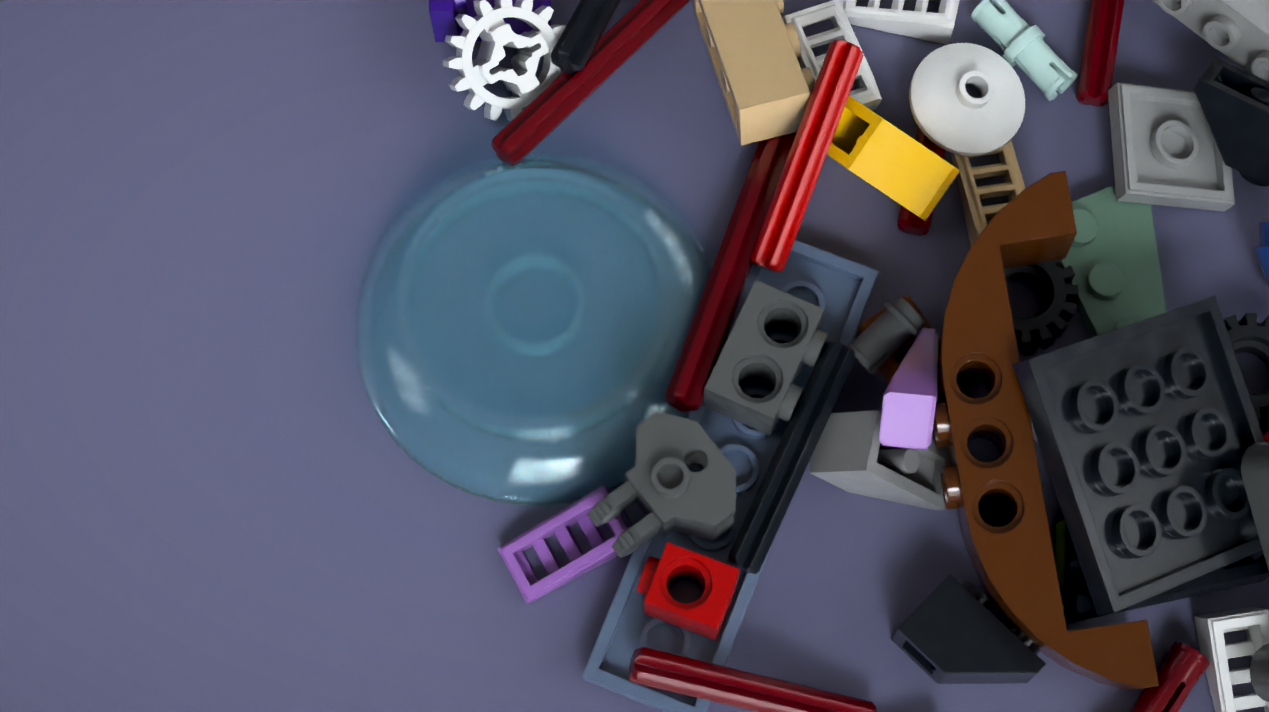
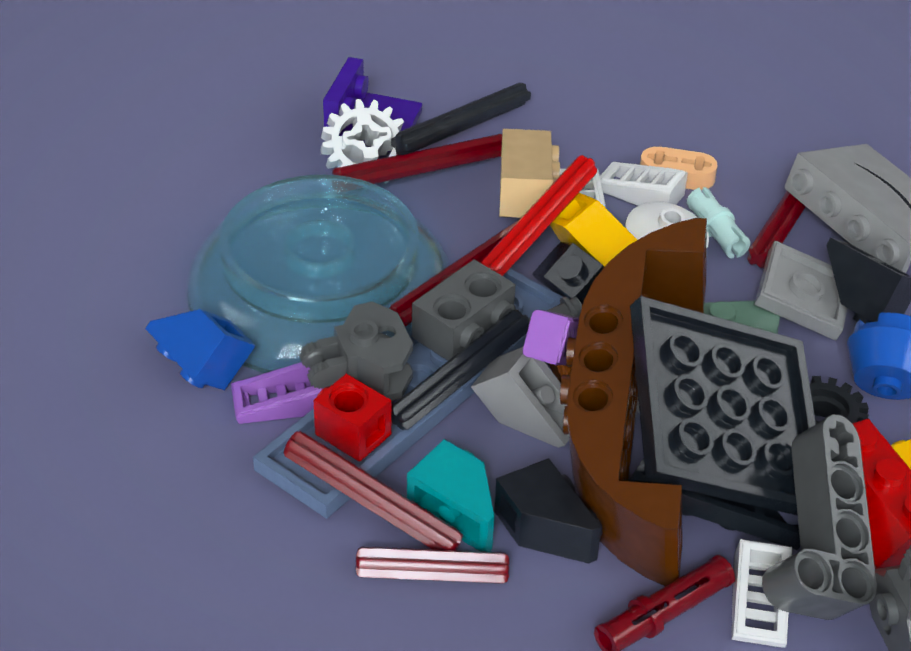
camera: 15 degrees right, 30 degrees down
(442, 512) = (203, 345): none -> blue slope
(849, 648) = (456, 490): none -> teal slope
(872, 229) = (568, 271): none -> black slope

